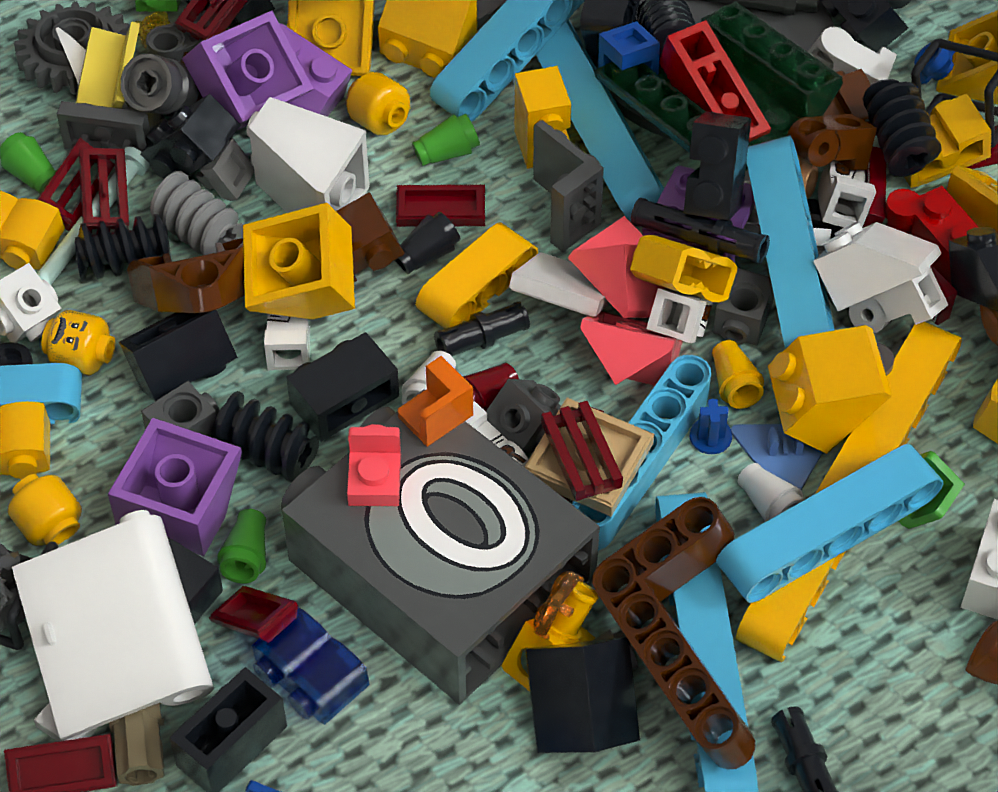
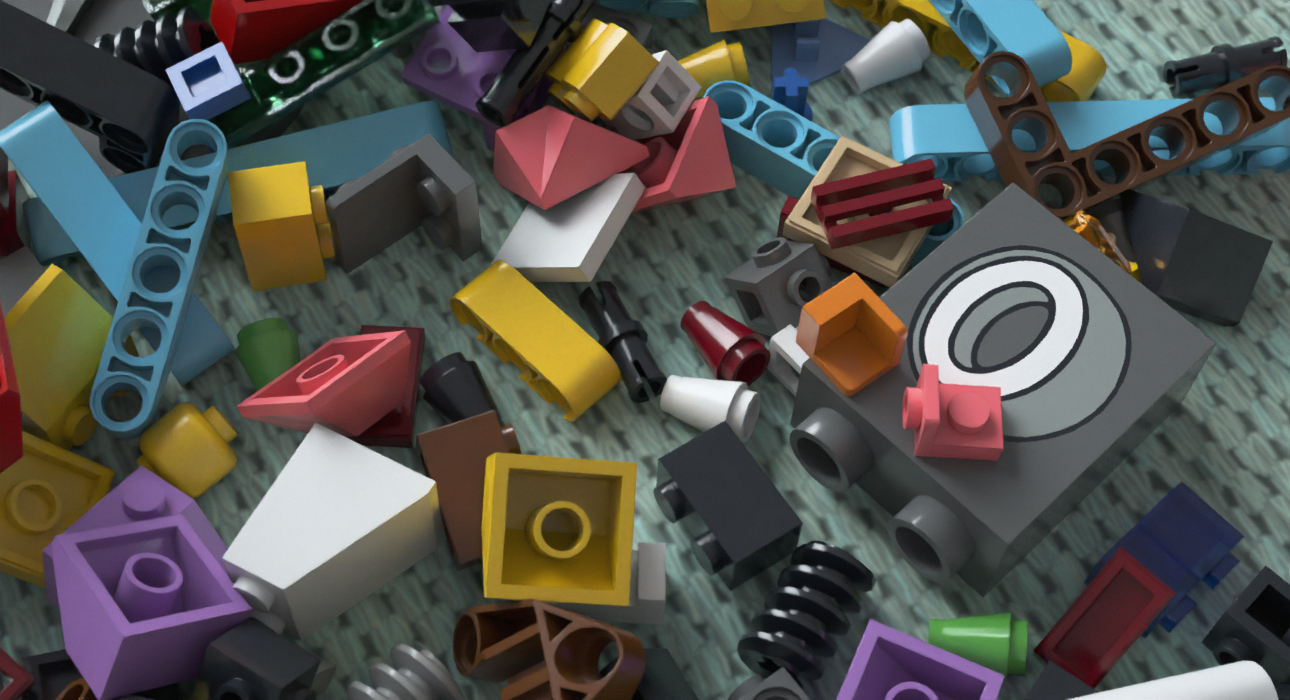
camera: 90 degrees left, 5 degrees up
(411, 157) = (339, 386): none -> coral slope
(476, 48) = (154, 247): none -> medium azure beam

